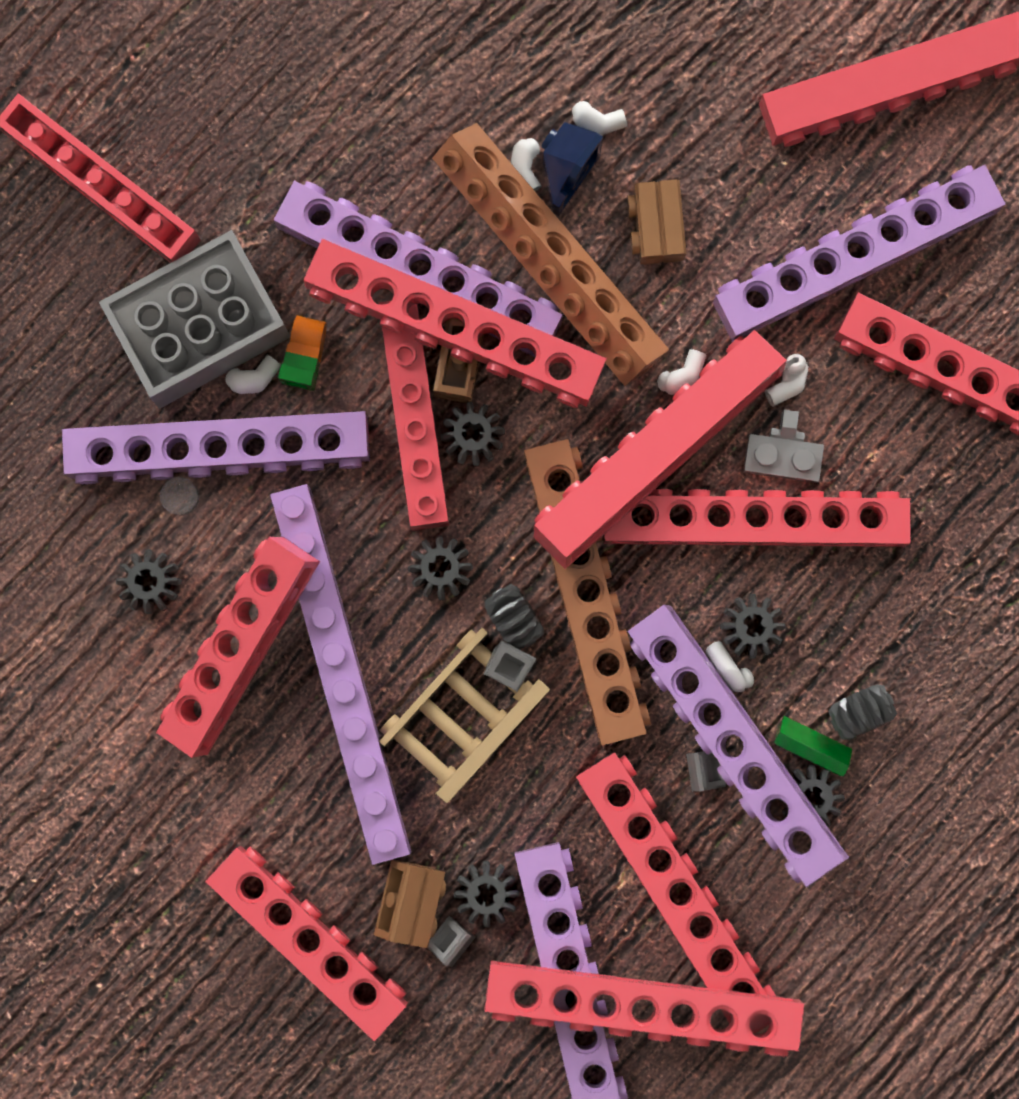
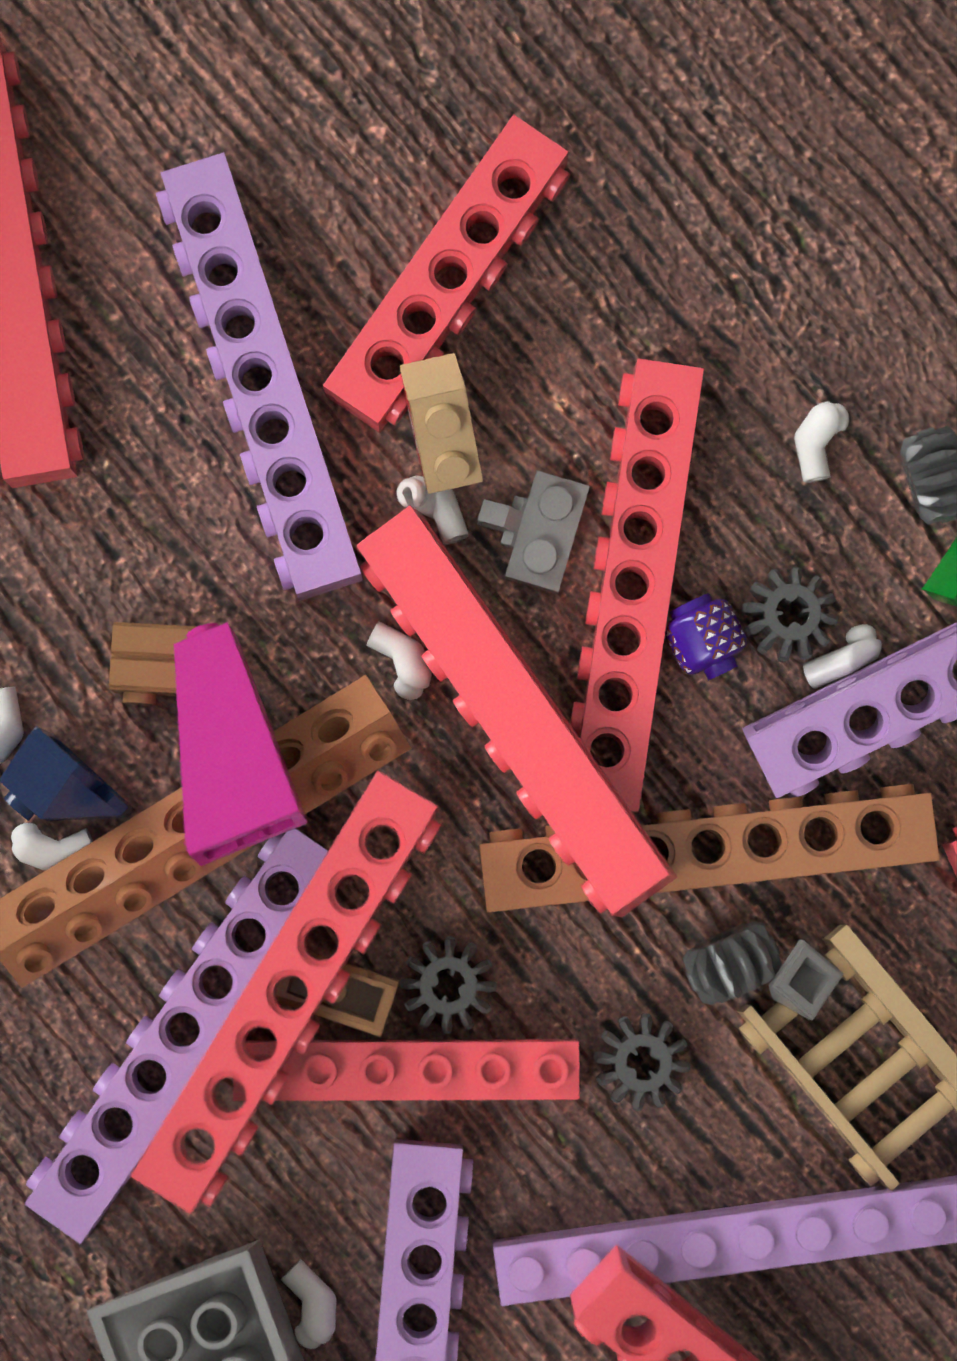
camera: 90 degrees left, 0 degrees up
(303, 353) = (287, 1223): leg -> none
(604, 262) = (229, 756): none -> dark pink slope
(729, 571) = (705, 636): none -> dark purple head
(844, 373) = (441, 423): none -> tan brick
(878, 628) = (814, 434): none -> white arm

